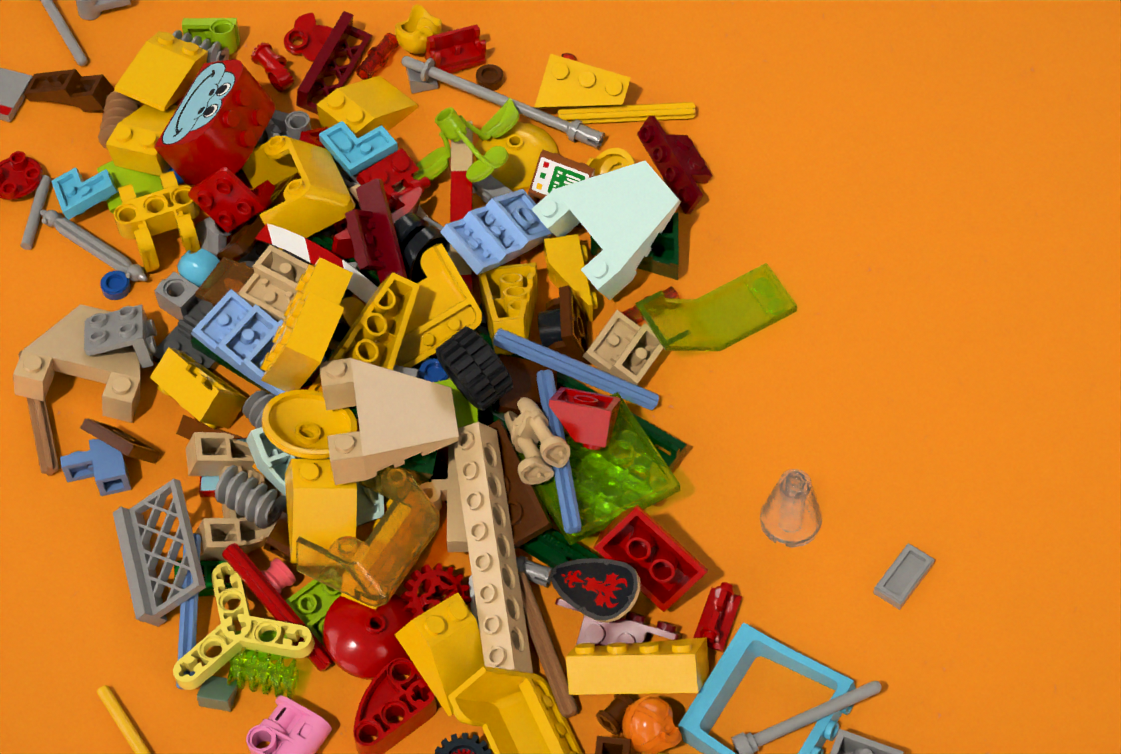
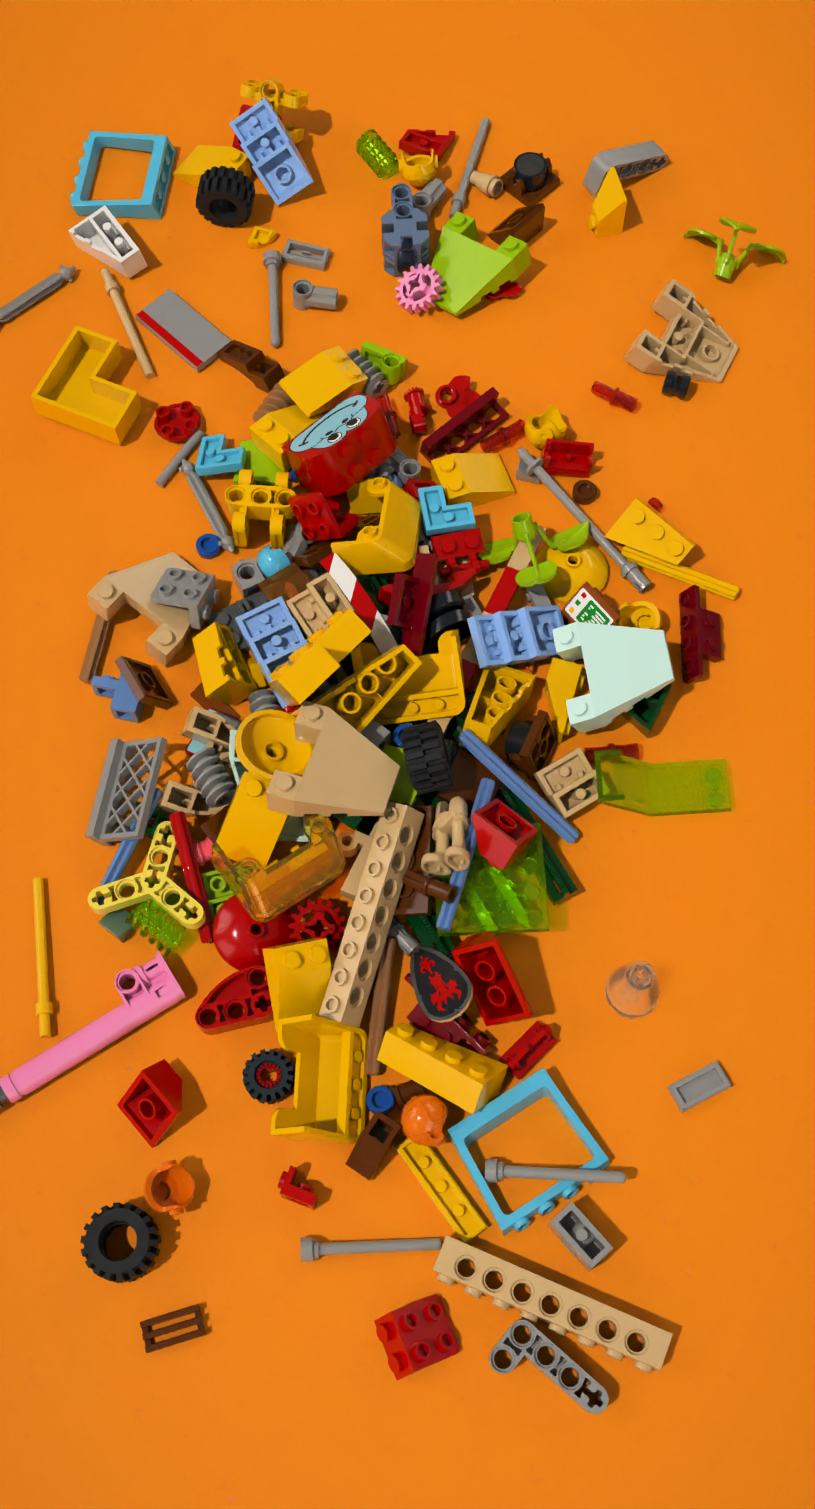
camera: 25 degrees right, 10 degrees up
(235, 380) = (256, 672): none -> yellow tile
(539, 493) = (430, 886): none -> reddish brown axle
(587, 734) = (380, 1099): none -> blue tile

